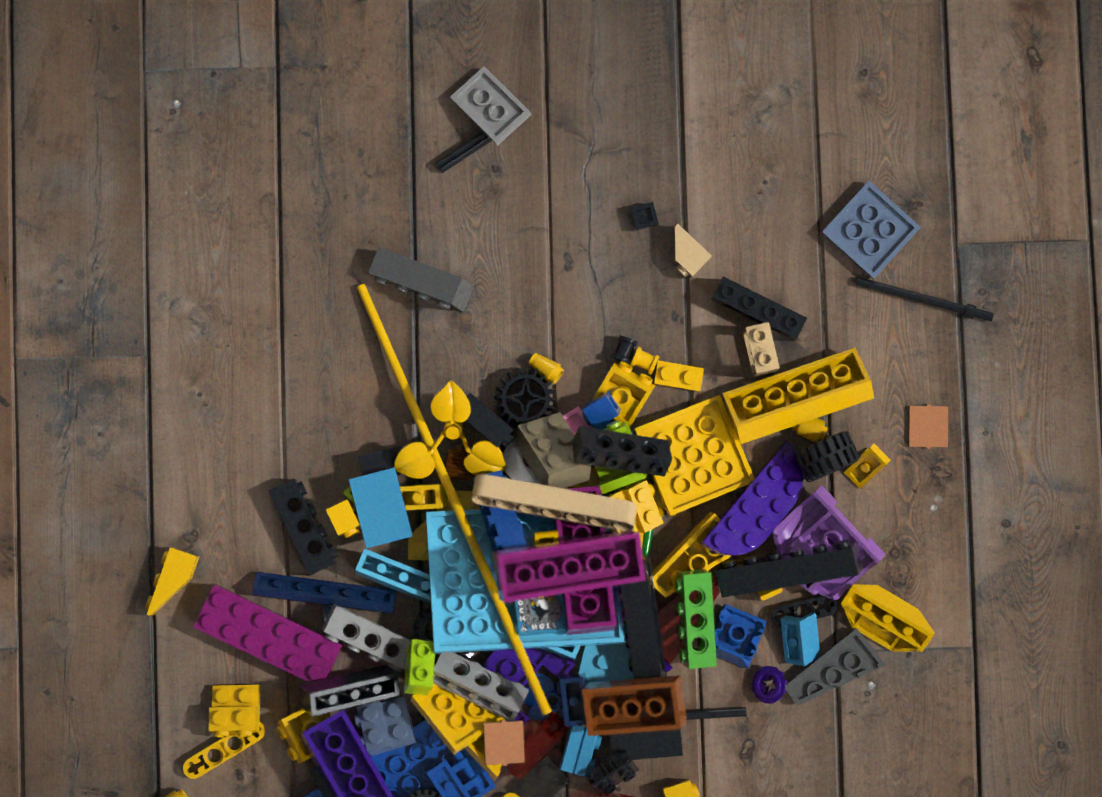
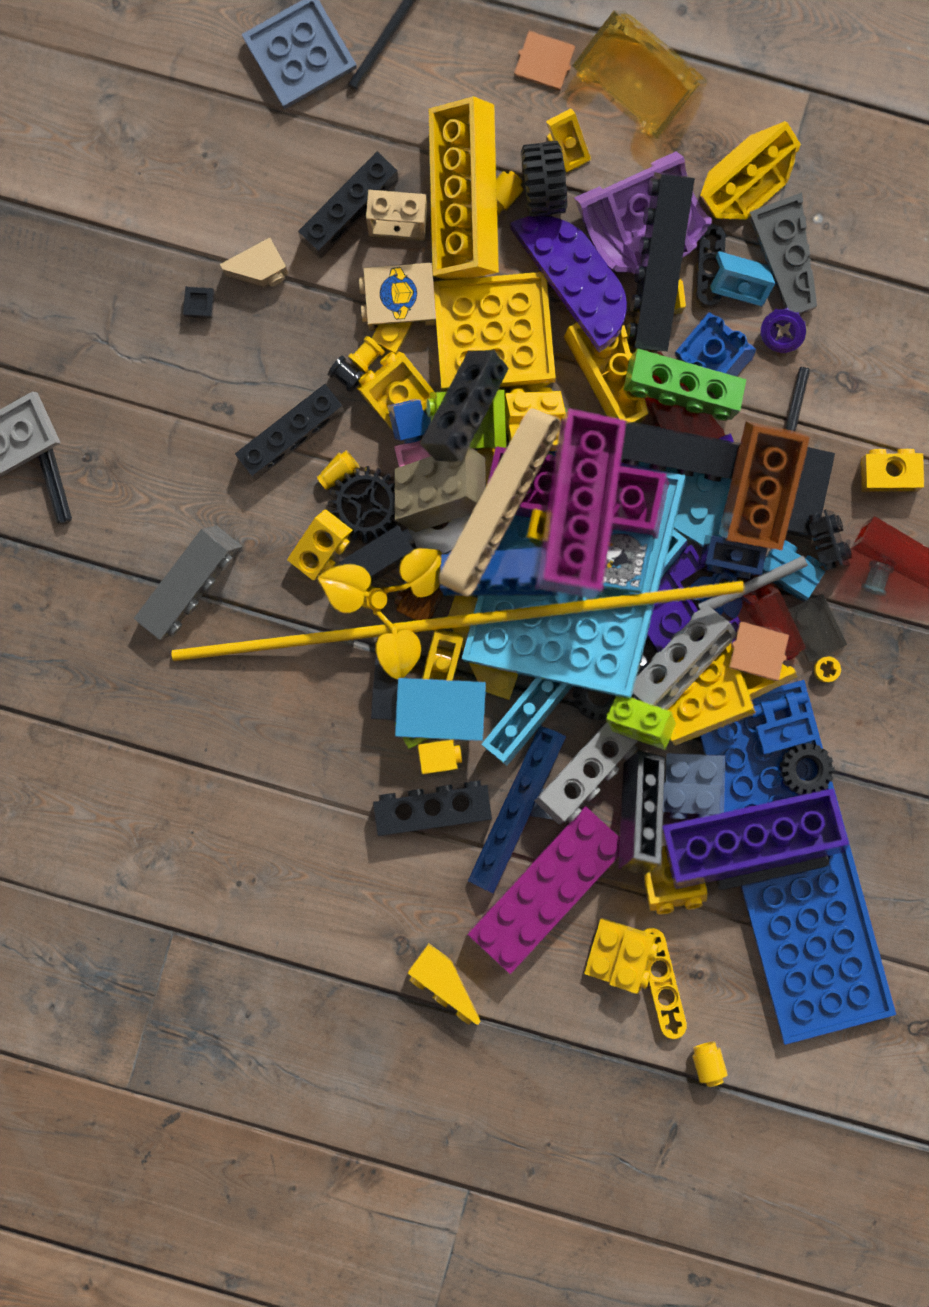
camera: 75 degrees left, 0 degrees up
(481, 371) = (316, 542): none -> yellow brick
(563, 320) = (290, 432): none -> black brick
(563, 730) = (758, 582): none -> light grey bar
(699, 370) = (398, 294): none -> tan panel
(941, 507) = (640, 72): none -> clear yellow windscreen

